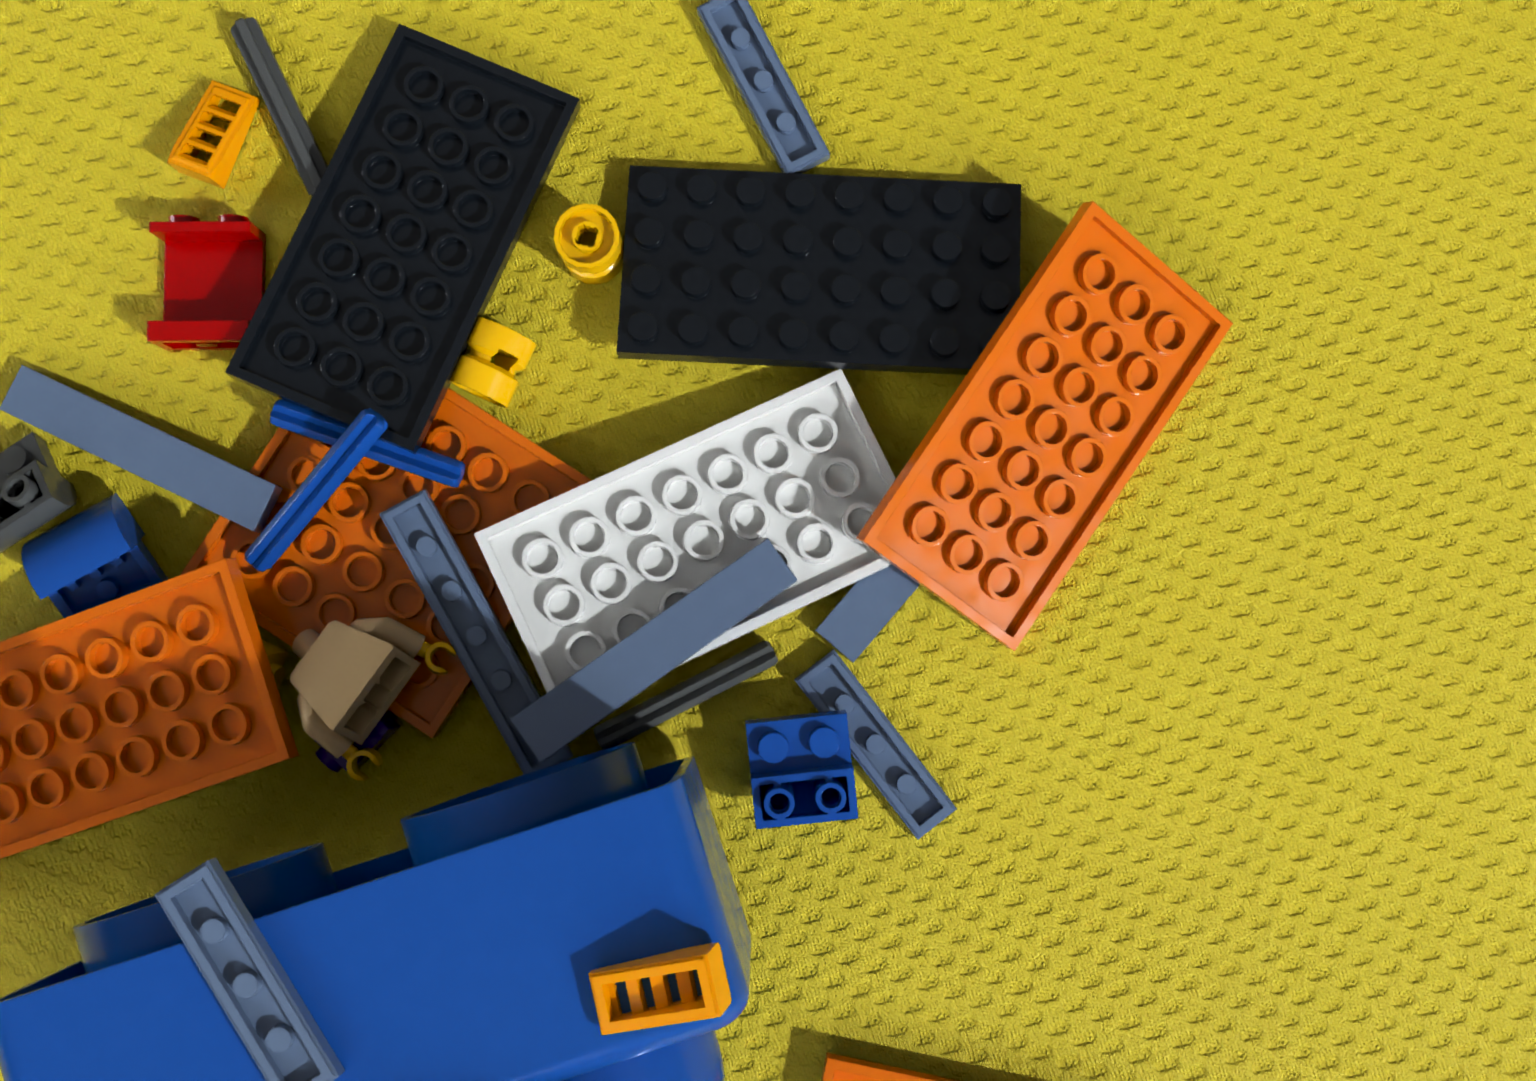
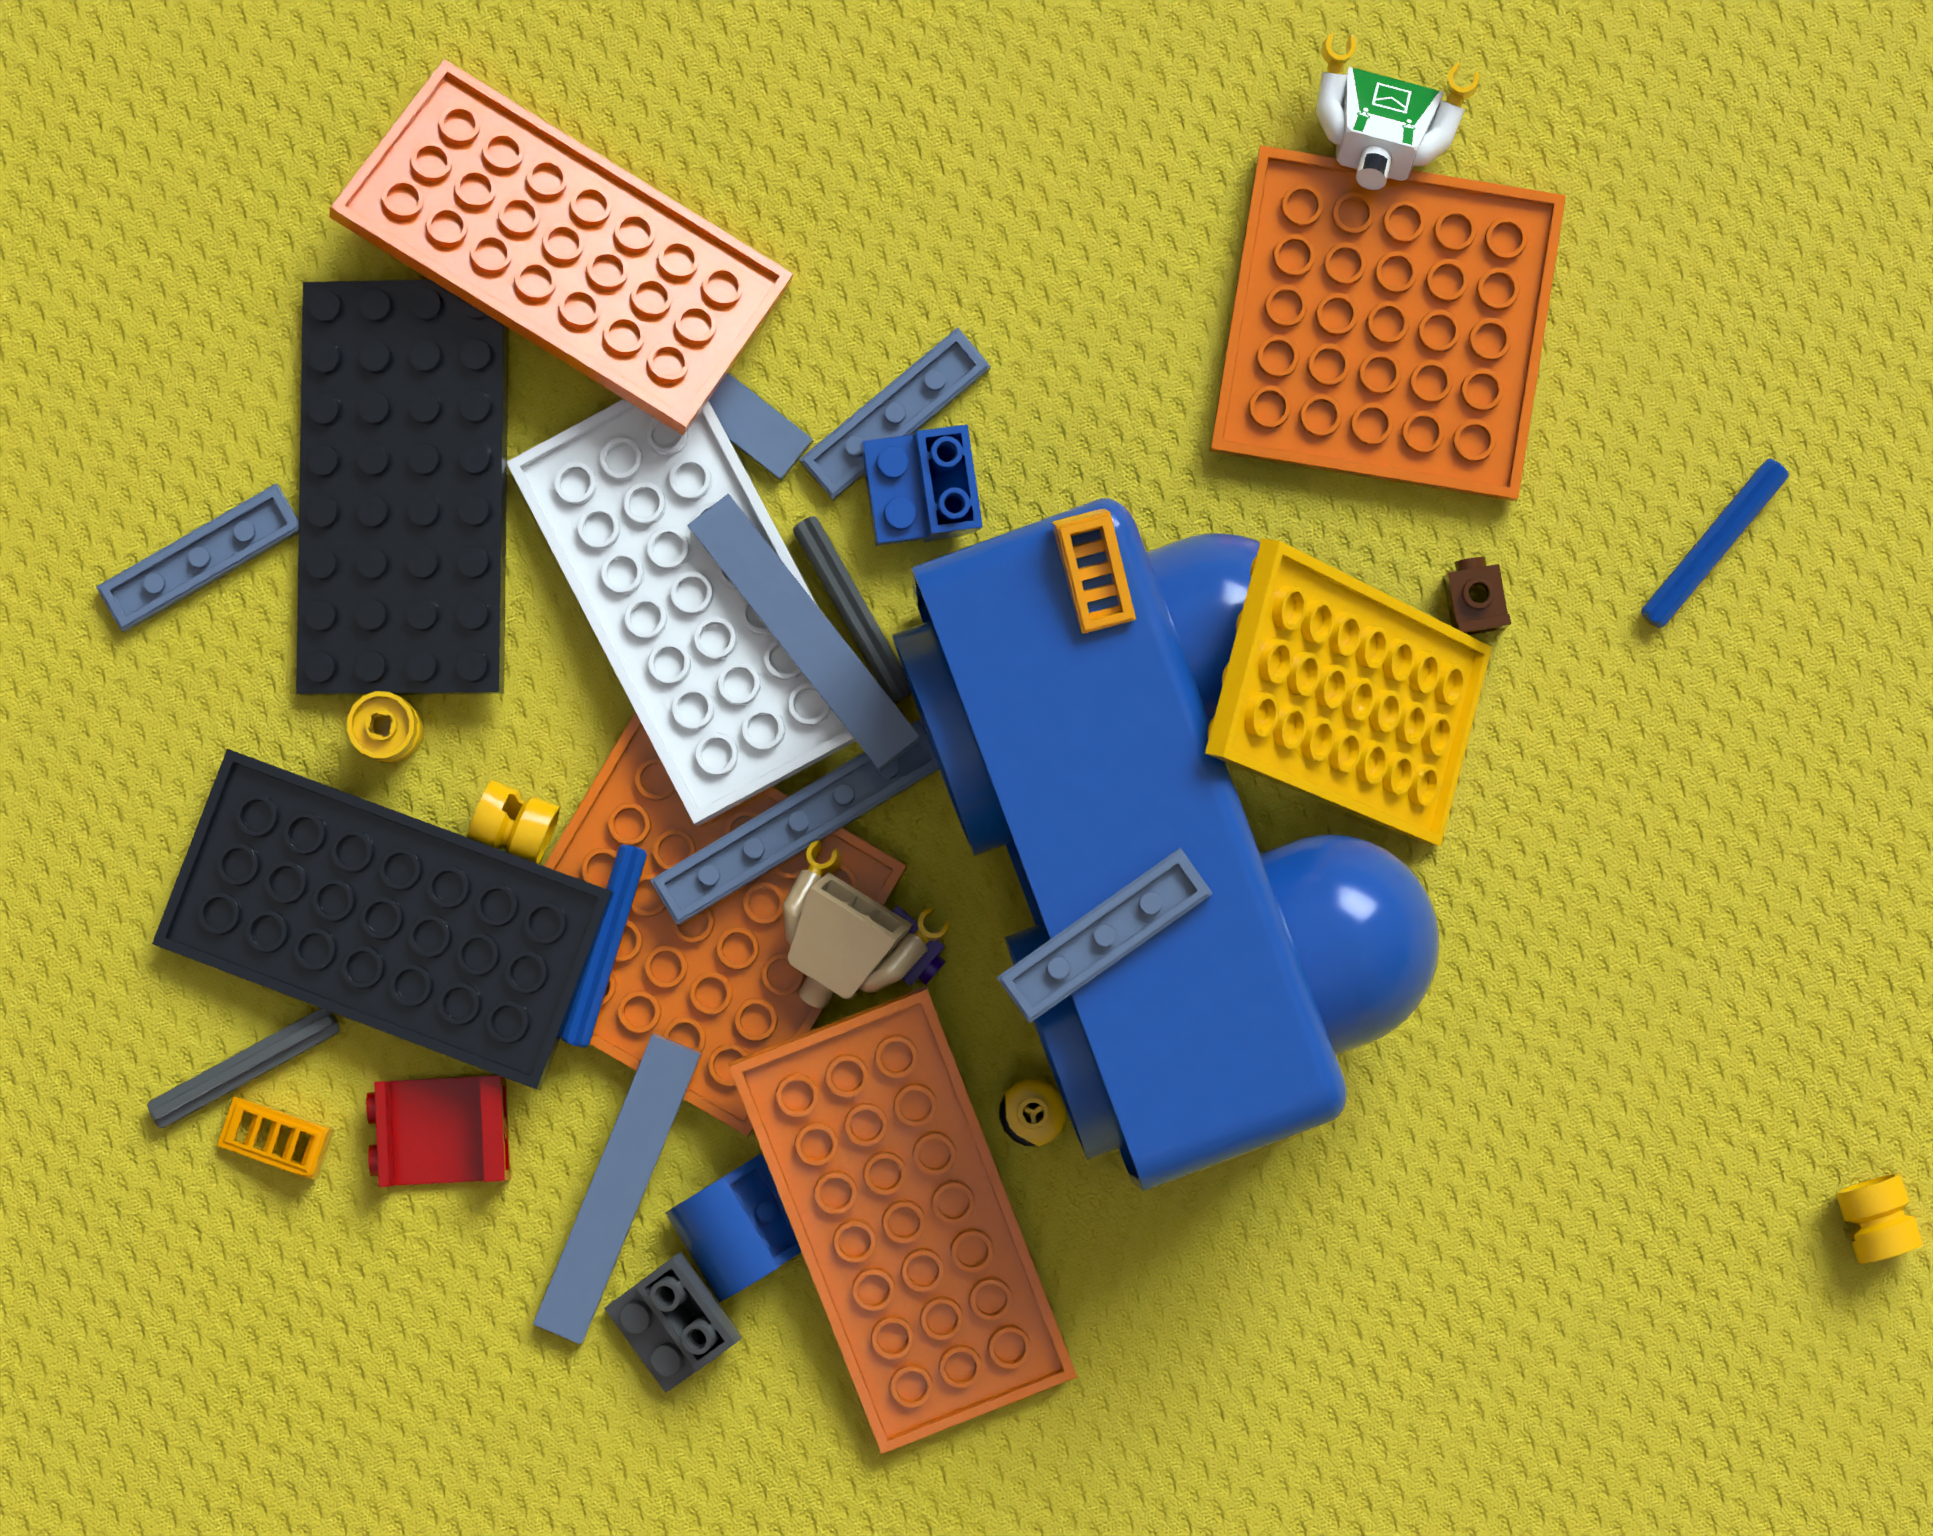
camera: 90 degrees left, 0 degrees up
(180, 848) = (1015, 1102): none -> yellow head
(316, 489) = (655, 989): blue axle -> none

